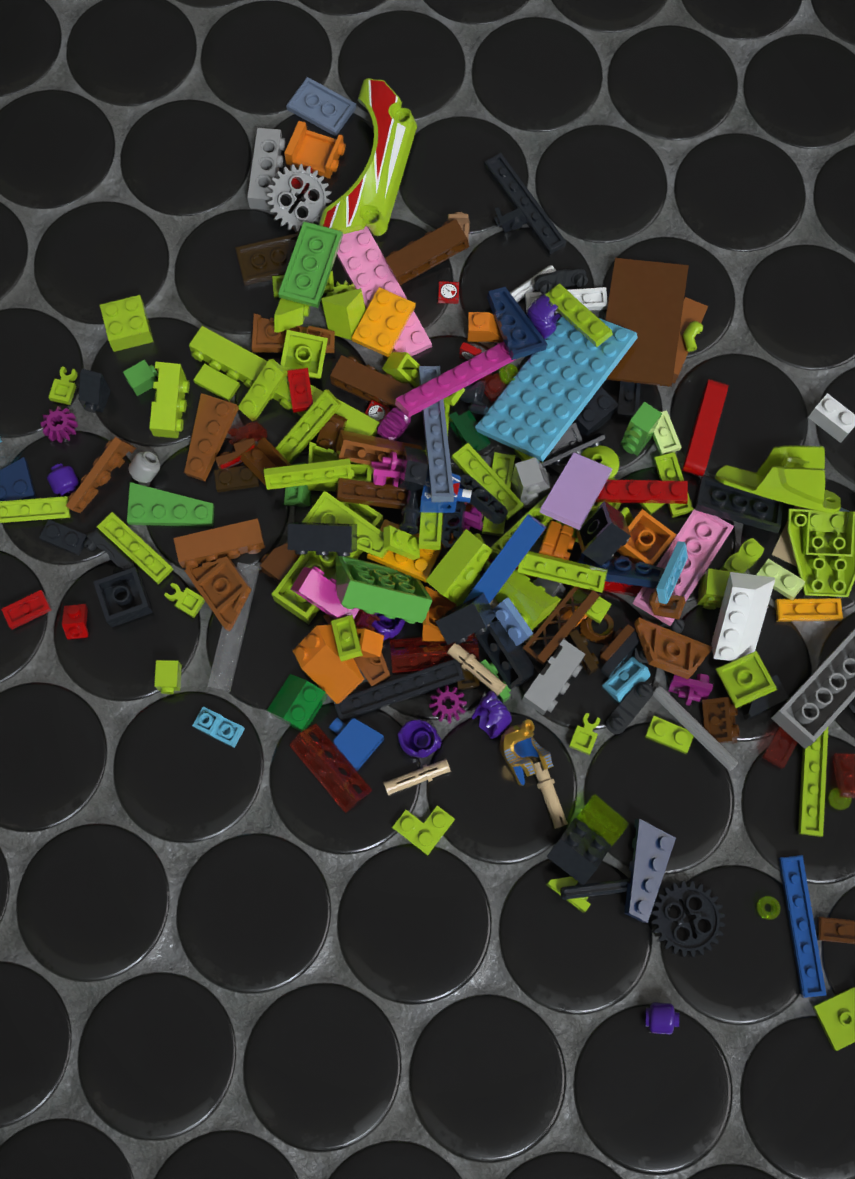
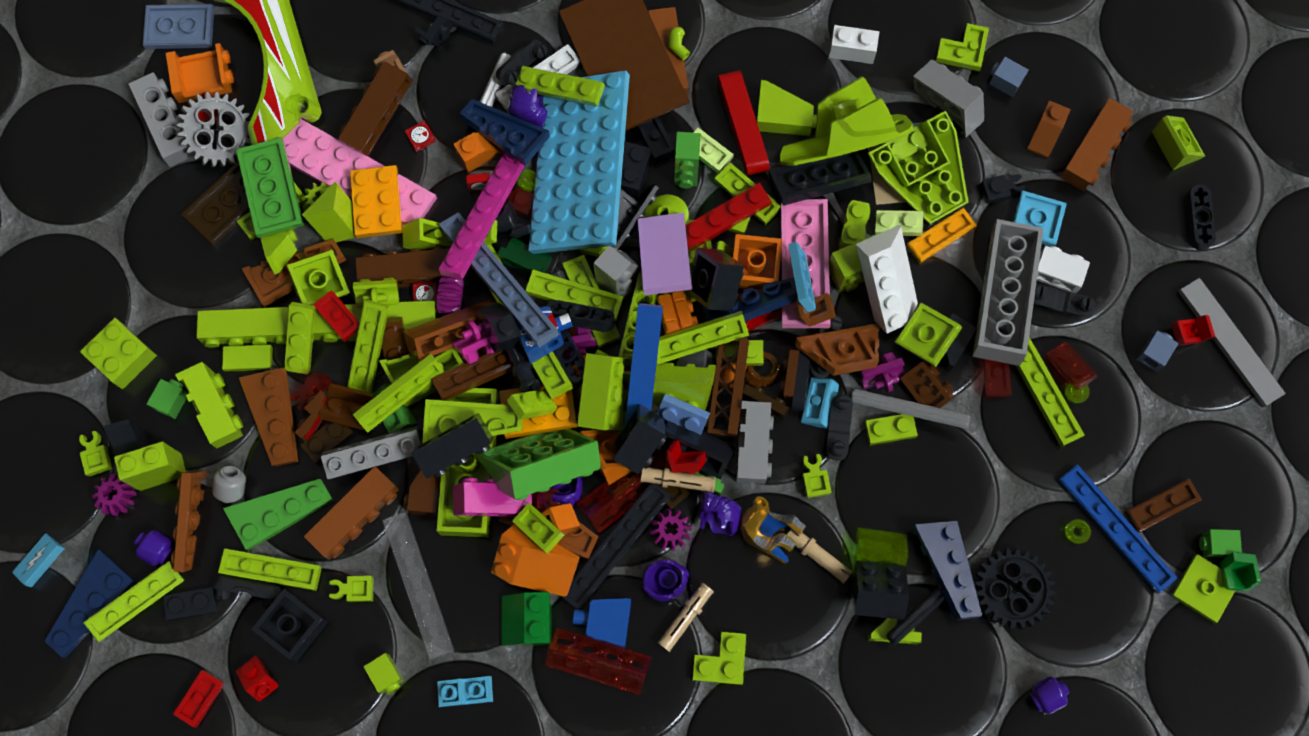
camera: 30 degrees left, 0 degrees up
(96, 418) = (150, 466): none -> lime brick
(221, 588) = (383, 555): dark orange wing -> none
(260, 506) = (370, 452): none -> light grey brick
(341, 389) = (378, 291): none -> lime hips
(490, 658) = (684, 461): none -> red bracket
(742, 438) = (783, 112): none -> lime slope

